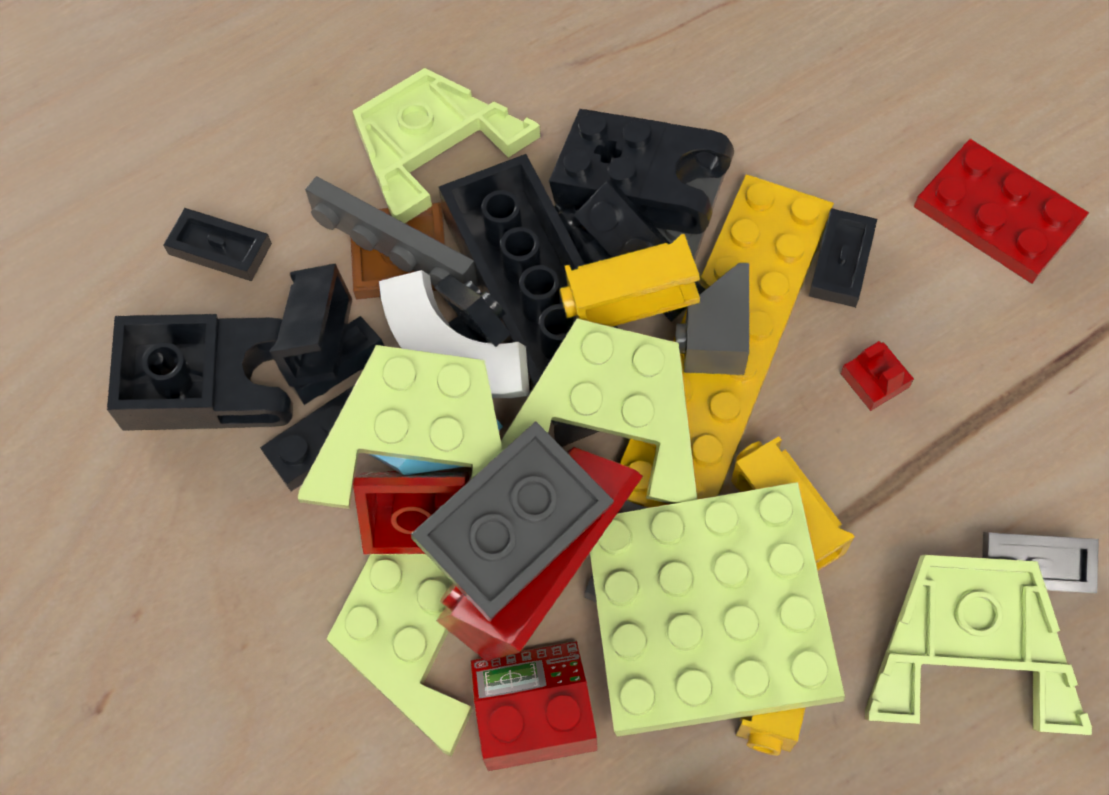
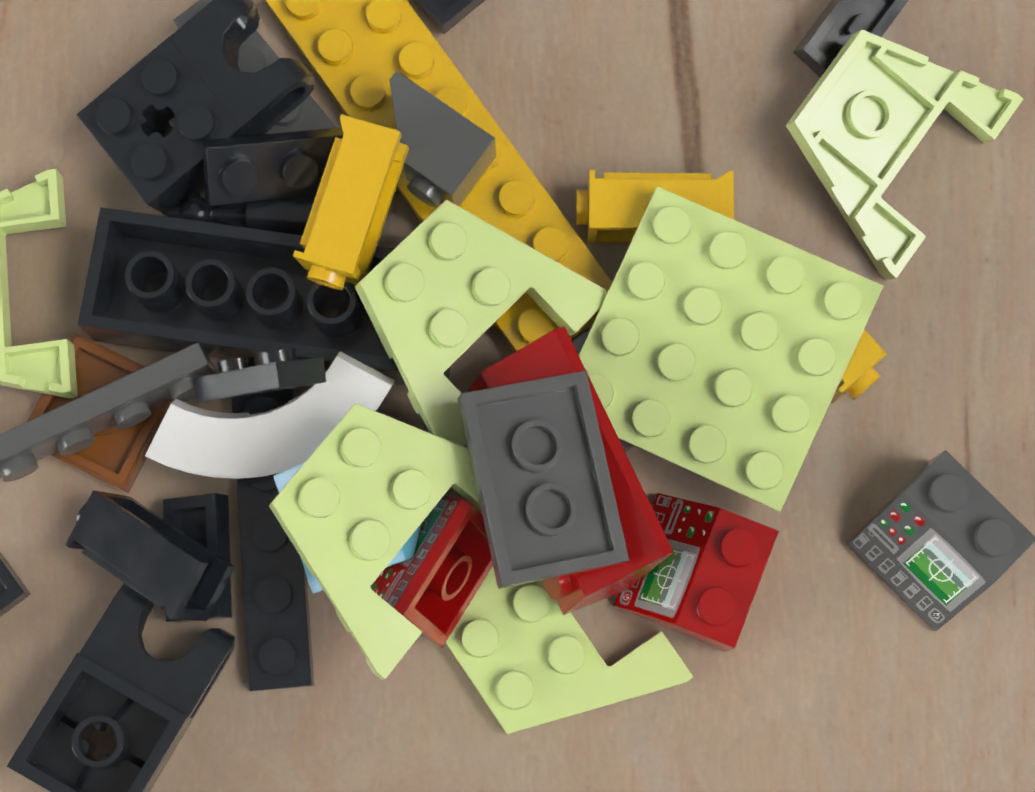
camera: 60 degrees left, 15 degrees up
(876, 375) = (573, 32): red tile -> none

